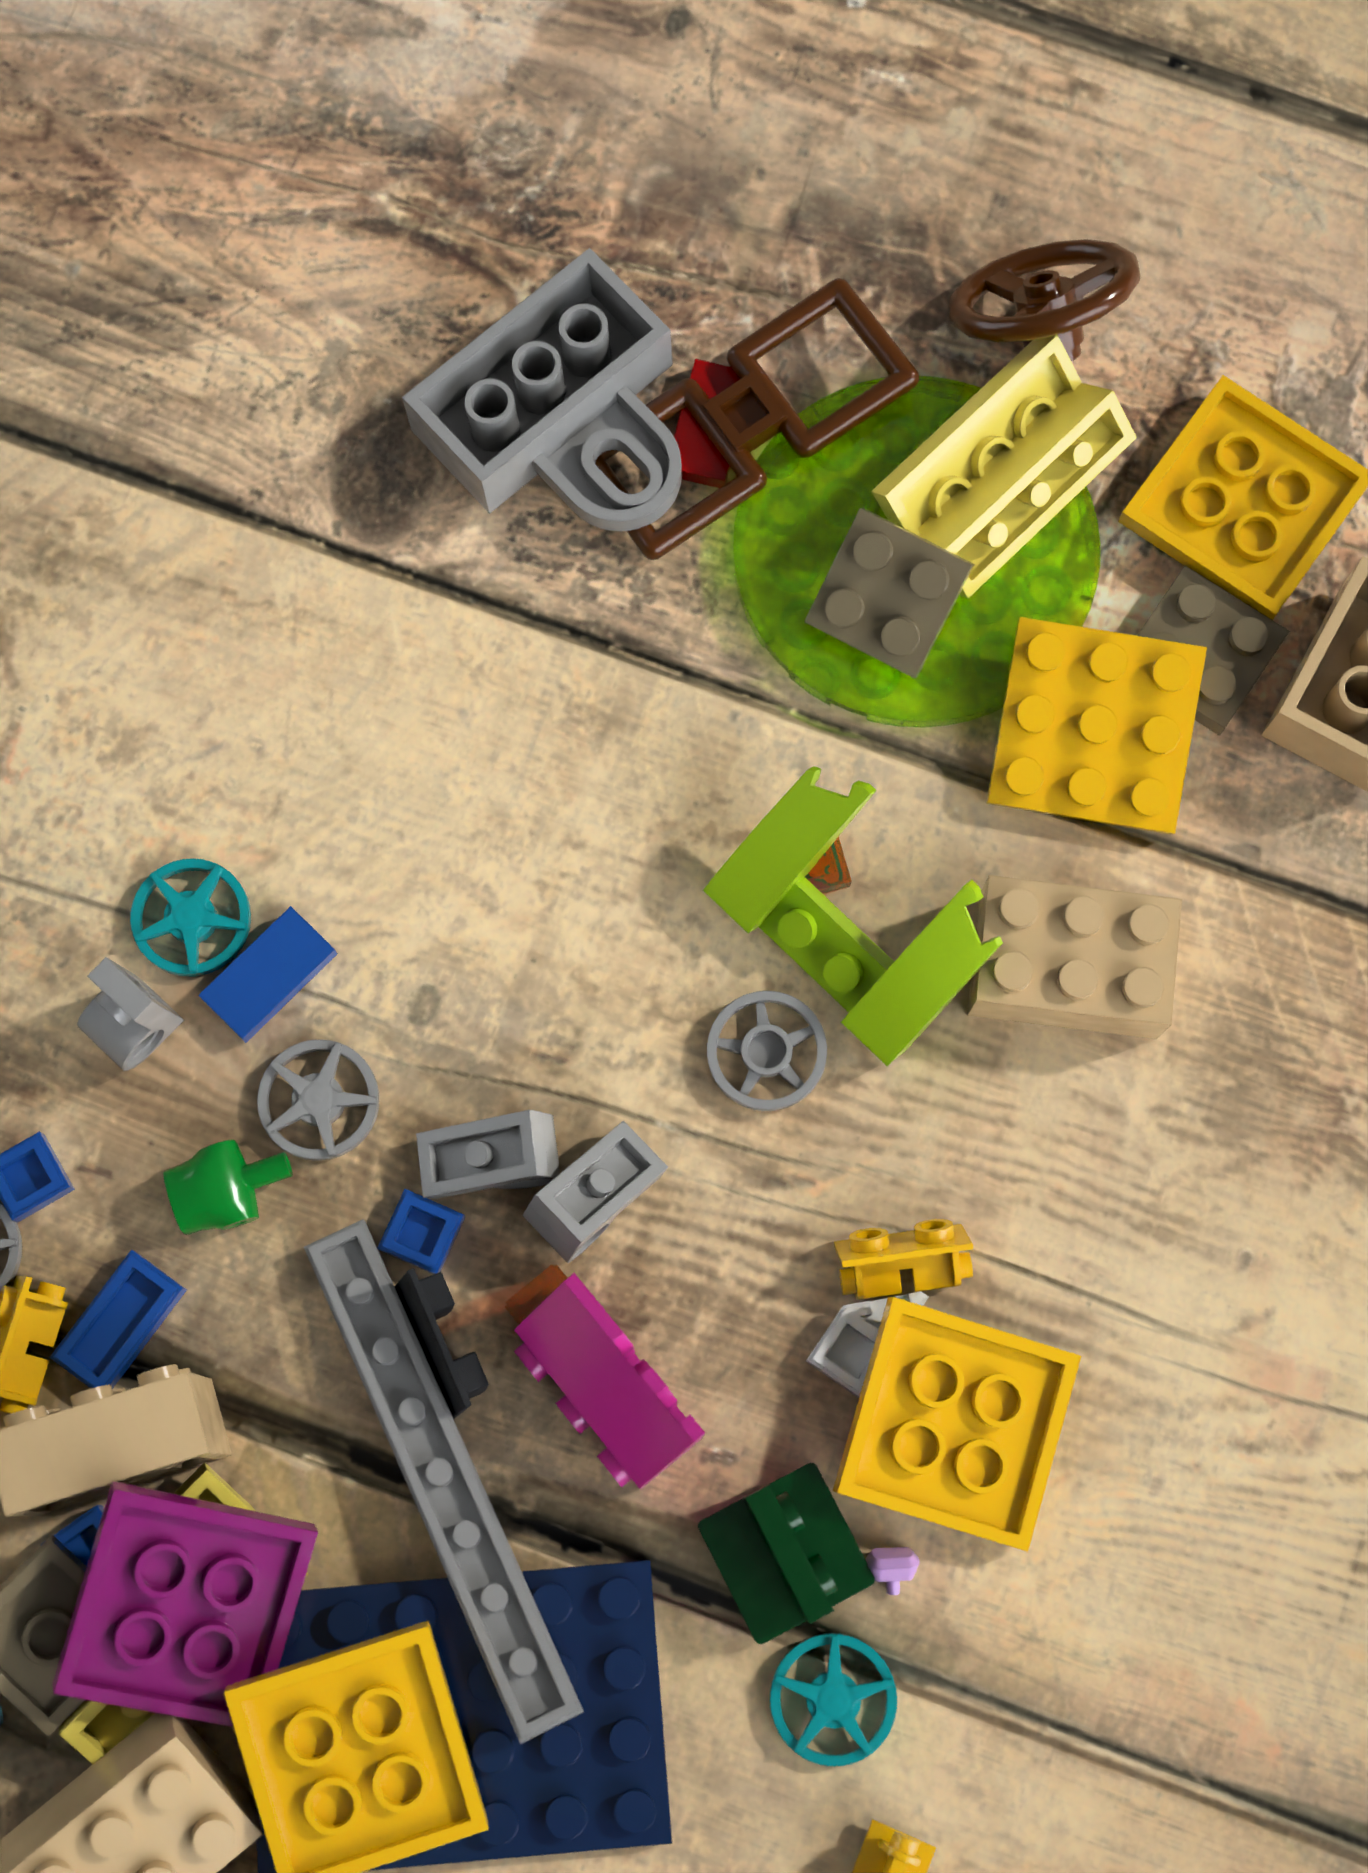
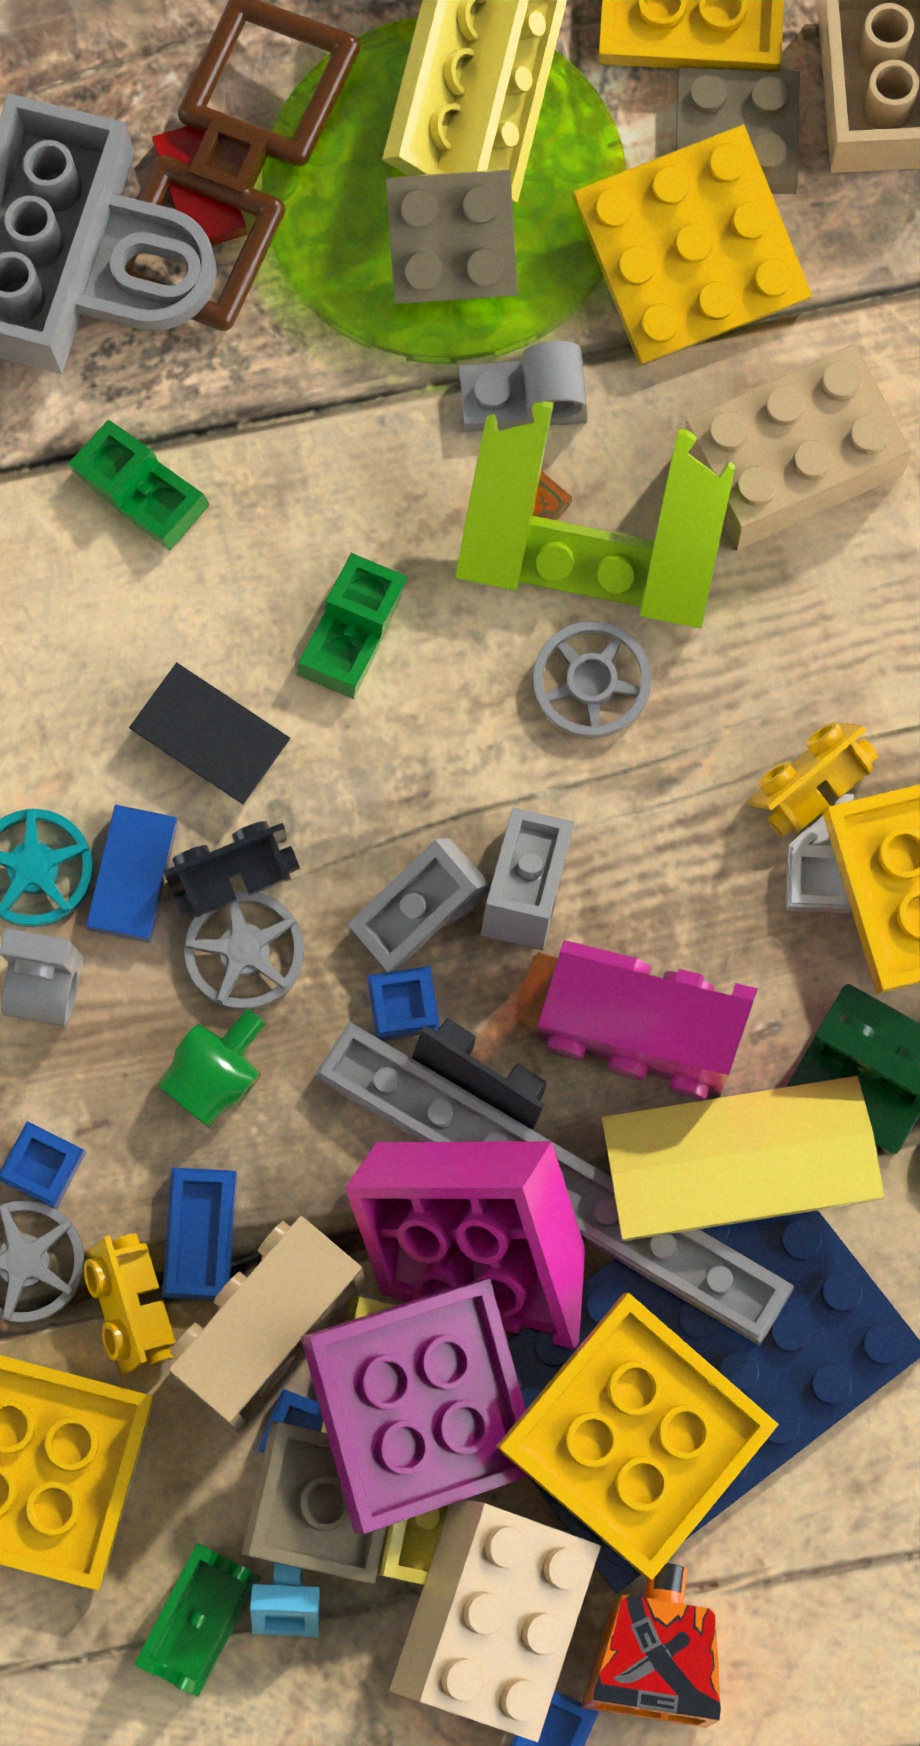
camera: 30 degrees left, 0 degrees up
(324, 1016) = (251, 855): none -> black hinge
(349, 1462) = (473, 1213): none -> dark pink wedge
(409, 894) = (209, 733): none -> black piece
(492, 646) = (138, 484): none -> green slope
(592, 876) = (352, 625): none -> green slope
(614, 1563) = (742, 1158): none -> light yellow slope
(894, 764) = (509, 389): none -> light grey plate

